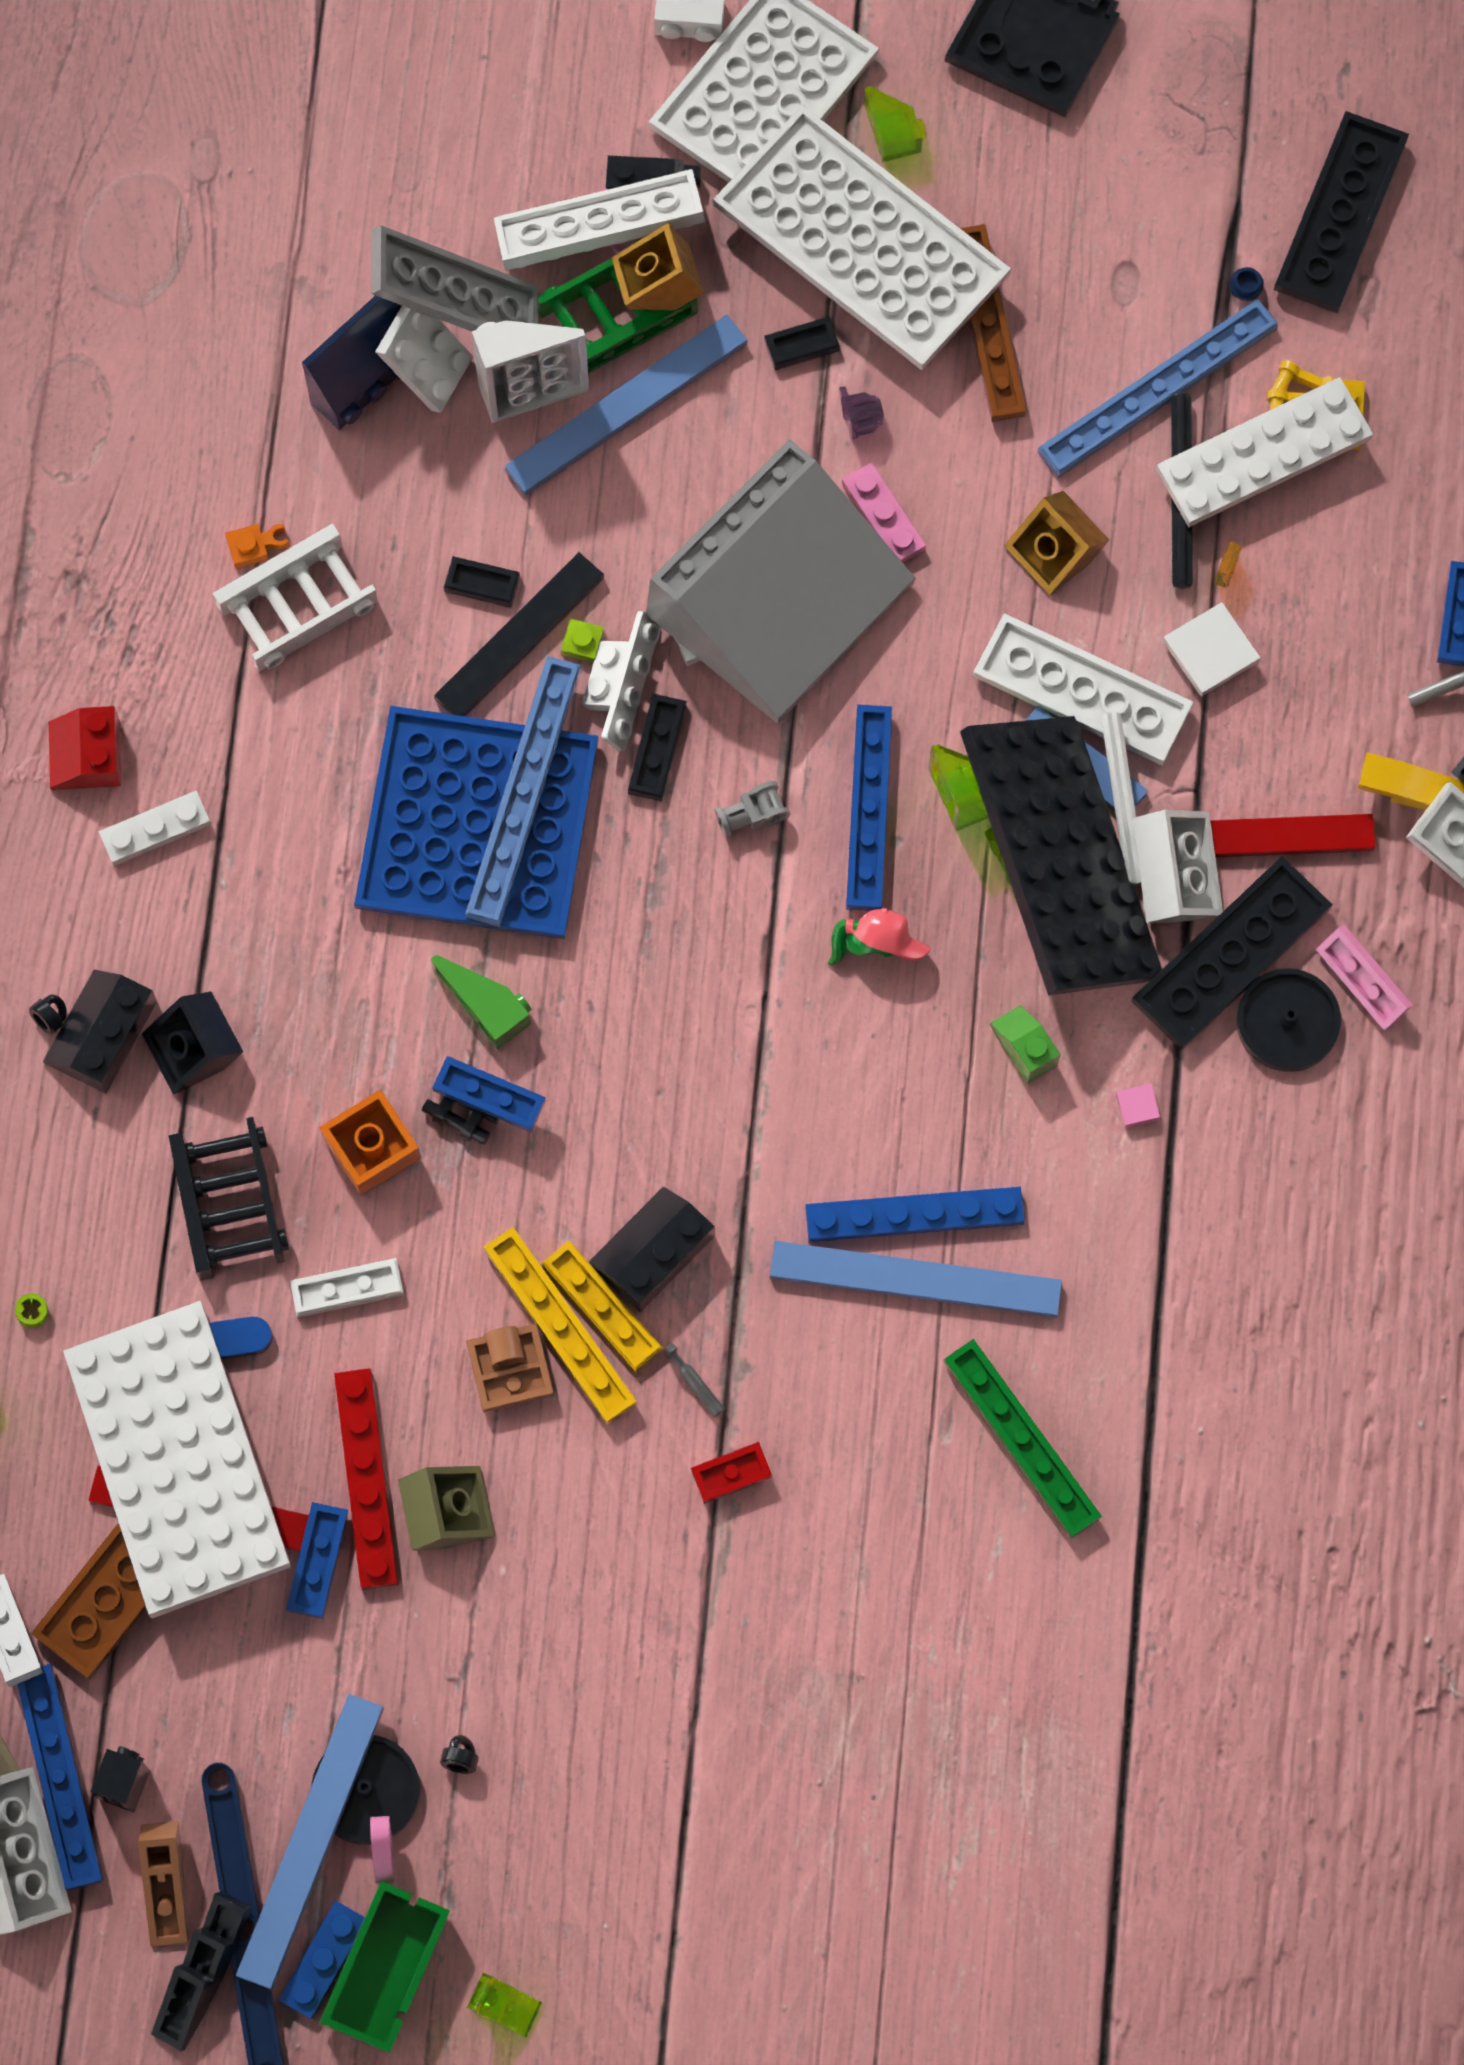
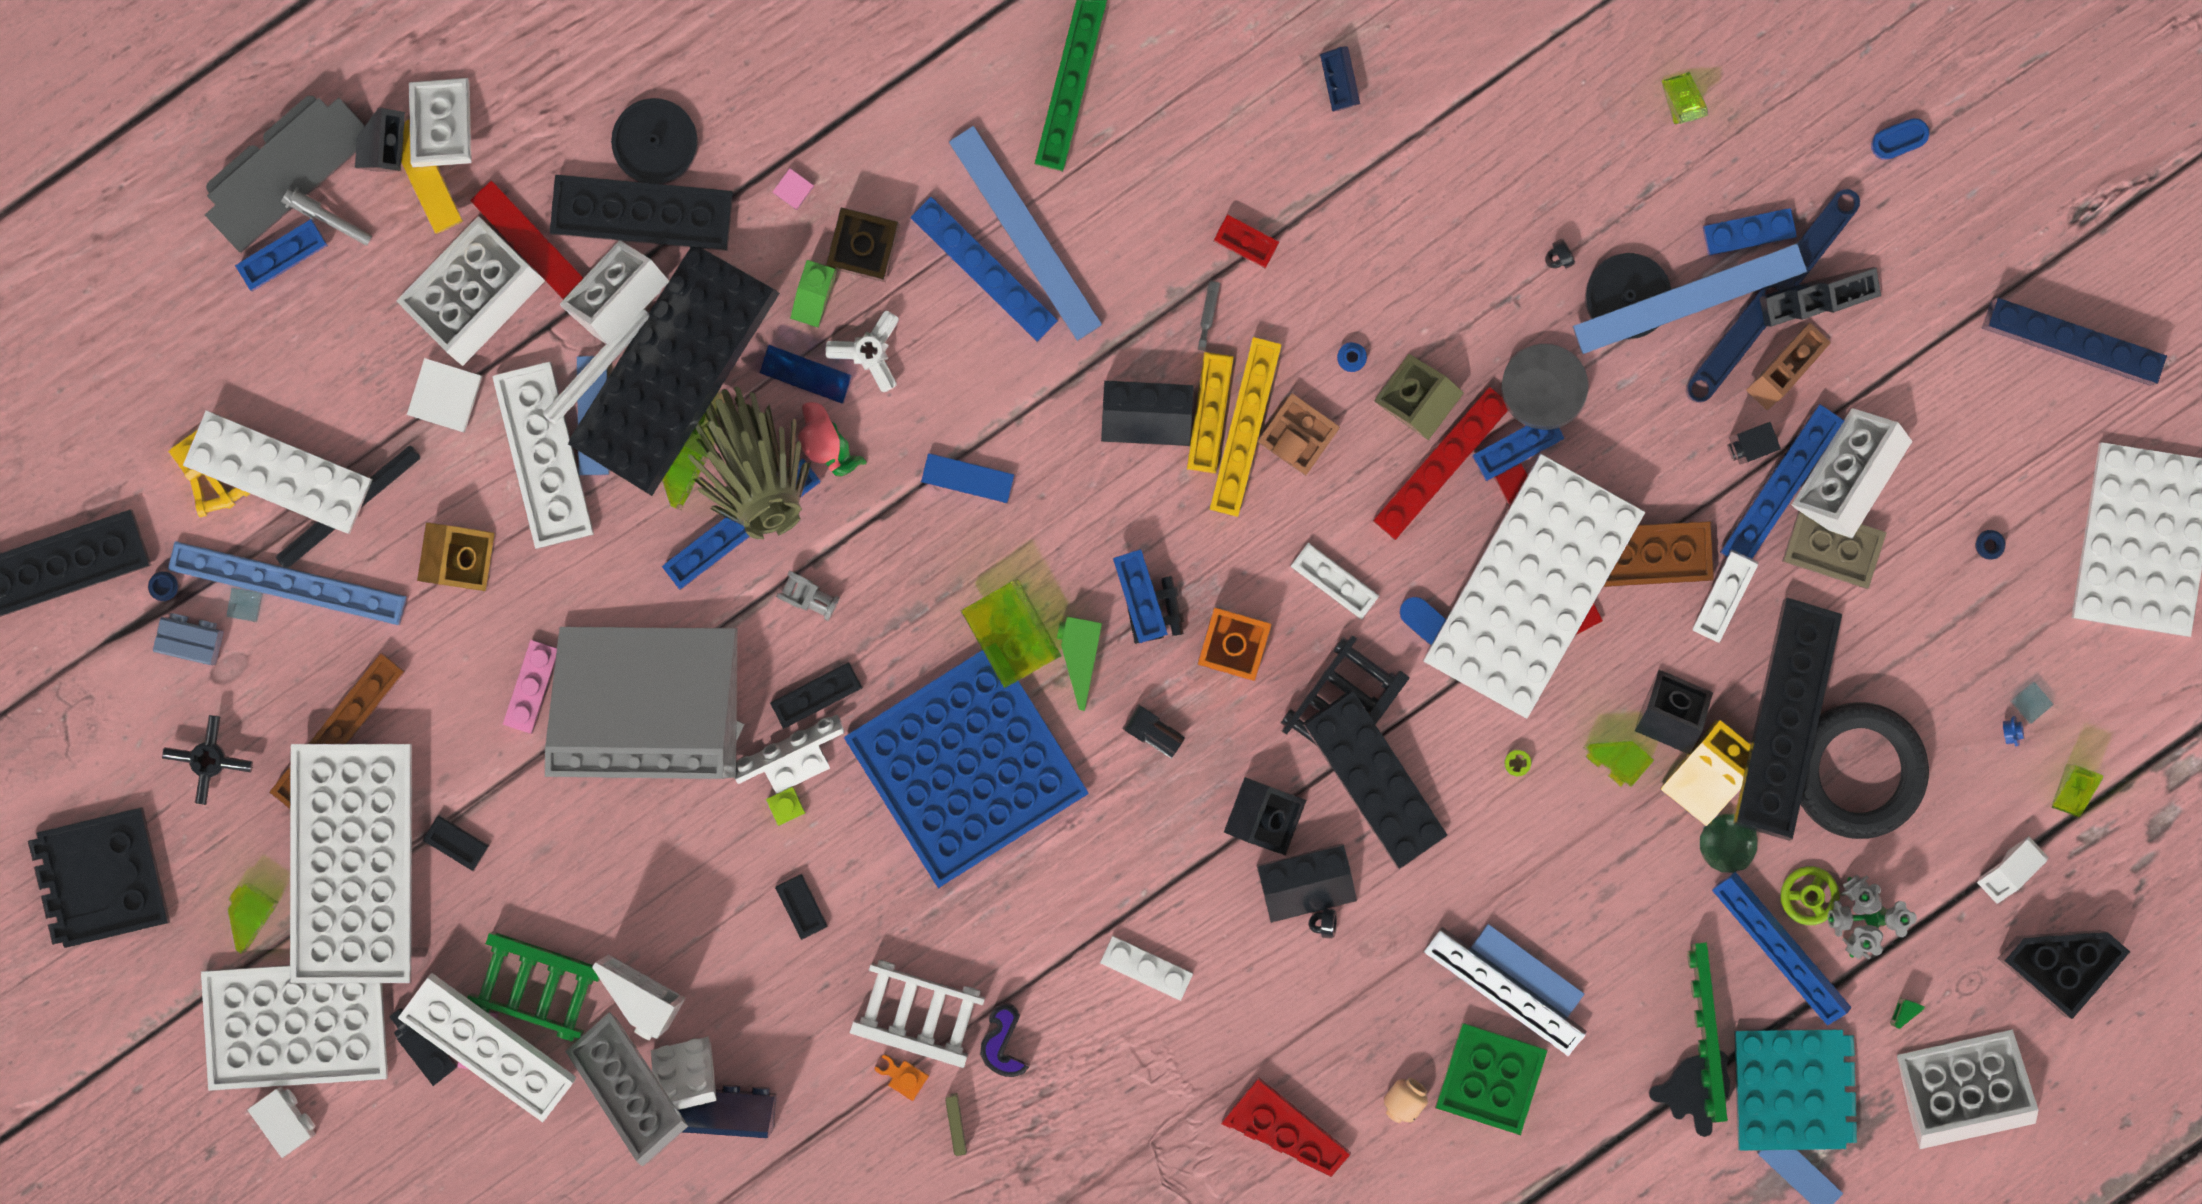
camera: 130 degrees left, 15 degrees up
(85, 749) = (1135, 1059): red slope -> none
(134, 1163) = (1374, 779): none -> black plate
(170, 551) = (955, 1124): none -> olive tile
(208, 637) = (996, 1040): none -> animal
(350, 1632) = (1544, 386): none -> flat silver piece
(366, 1006) = (1148, 728): none -> black piece
(382, 1849) = (1657, 251): bright pink beam -> none
(384, 1967) = (1726, 187): green piece -> none
(519, 636) = (817, 849): black tile -> none
(523, 791) = (922, 751): medium blue tile -> none
(546, 1486) = (1345, 364): none -> blue plate
(558, 955) = (1011, 633): none -> clear neon green slope
(625, 405) = (598, 920): medium blue tile -> none
(658, 272) = (495, 971): pearl gold slope -> none
(734, 1039) = (967, 478): none -> blue tile
(808, 1691) = (1340, 78): none -> dark blue plate
(861, 412) = (473, 760): clear purple piece -> none
(884, 827) = (757, 490): none -> olive plant
(931, 1061) = (877, 364): none -> white bush
(956, 977) = (806, 374): none -> clear blue slope
(1031, 1119) = (863, 244): none -> dark brown brick
(1059, 209) = (215, 751): none -> black bar
(1170, 337) = (244, 604): none -> clear light blue tile
(1179, 265) = (188, 640): none -> sand blue brick
(1228, 564) = (376, 432): clear yellow tile -> none
(1287, 746) = (470, 291): none -> white slope
(1364, 977) = (586, 115): bright pink plate -> none

